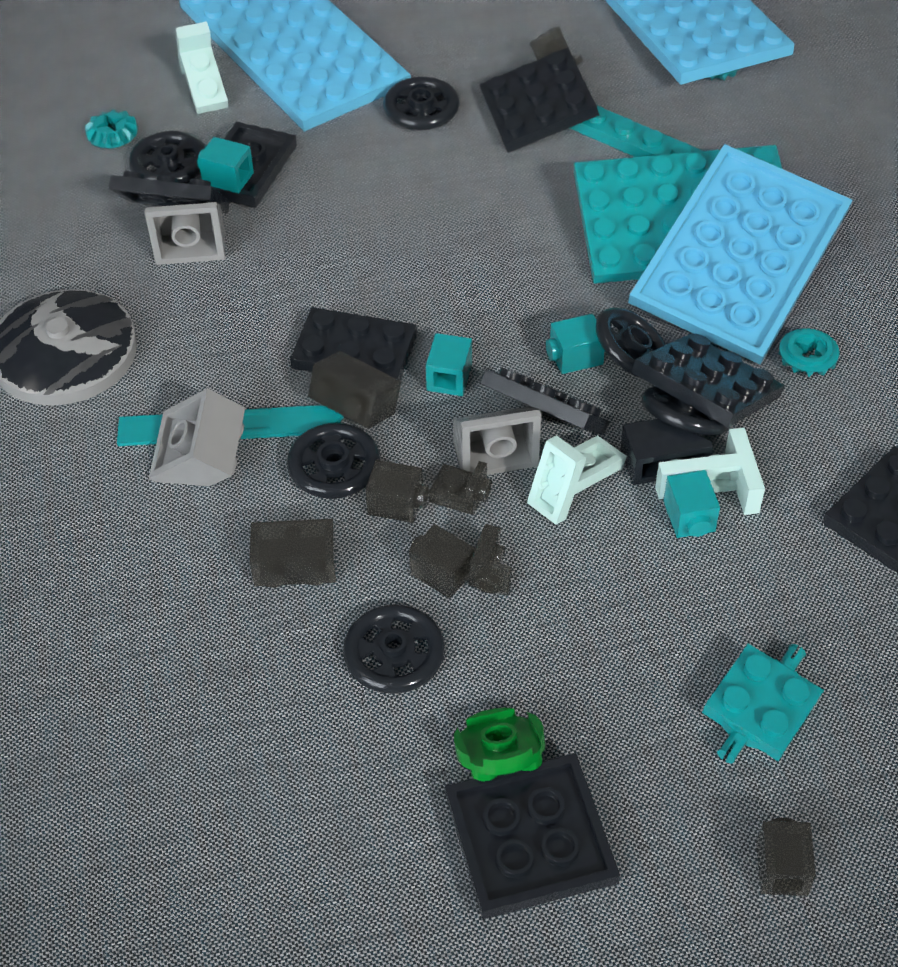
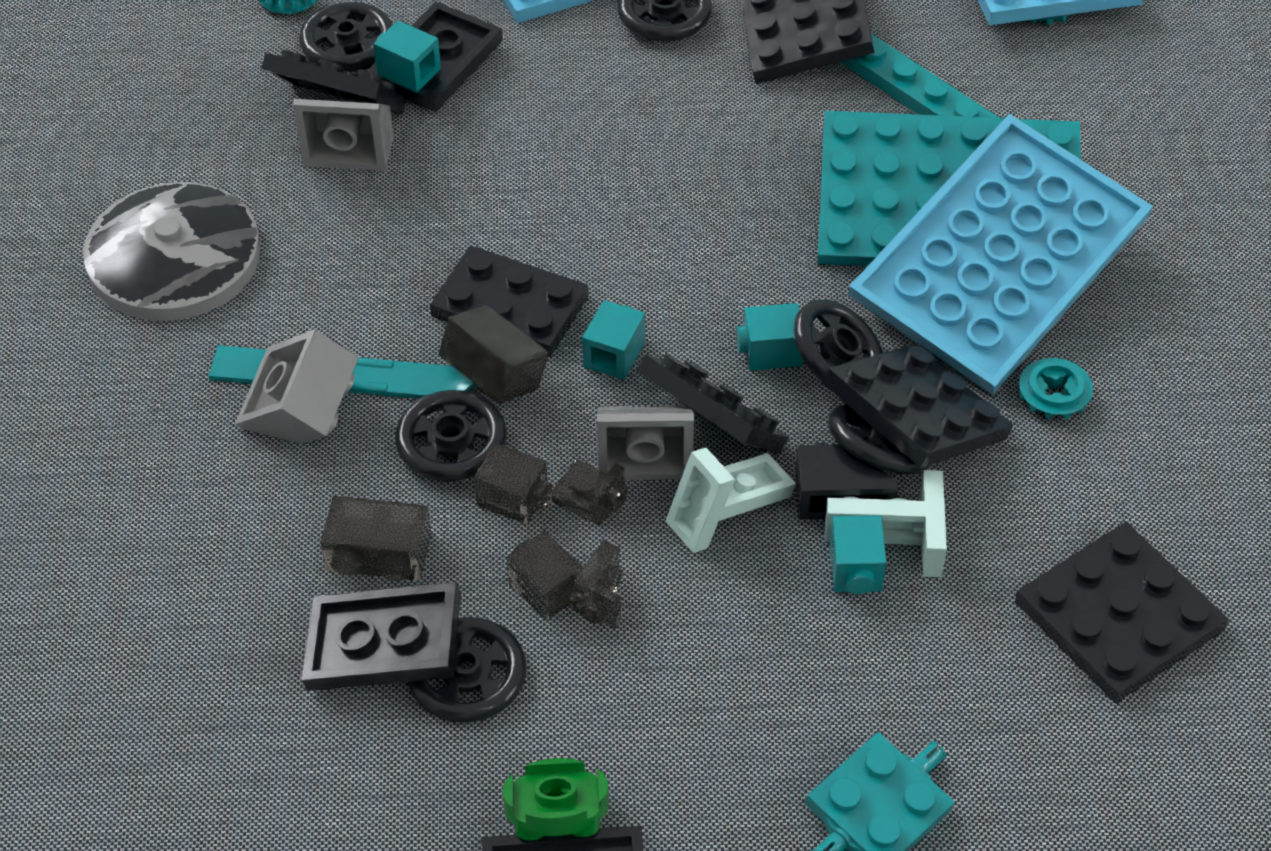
camera: 10 degrees right, 0 degrees up
(319, 632) = (382, 636): none -> plate

